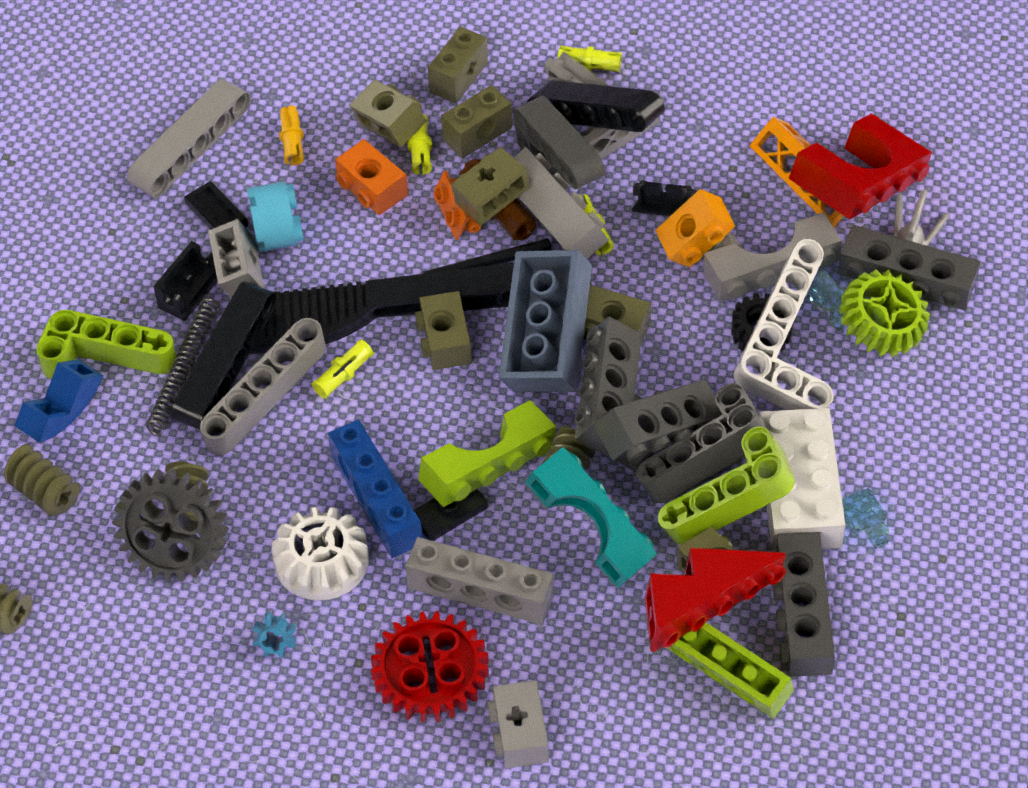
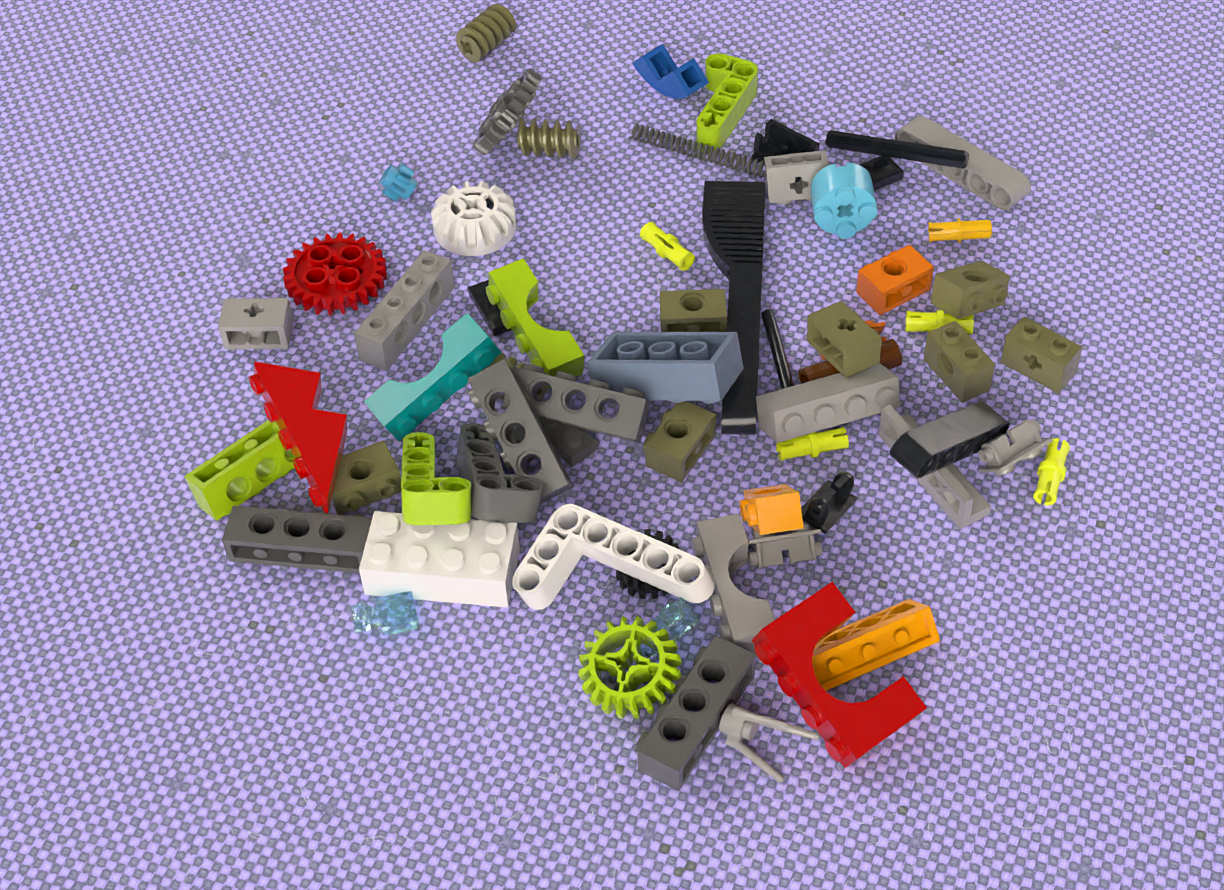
camera: 100 degrees right, 5 degrees down
(41, 480) = (591, 60): olive piece -> none
(182, 185) = (897, 149): none -> black axle
(224, 353) = (693, 165): black beam -> none
(261, 400) = (652, 187): light grey beam -> none
(375, 488) = (541, 244): blue brick -> none
(547, 131) = (919, 391): dark grey beam -> none

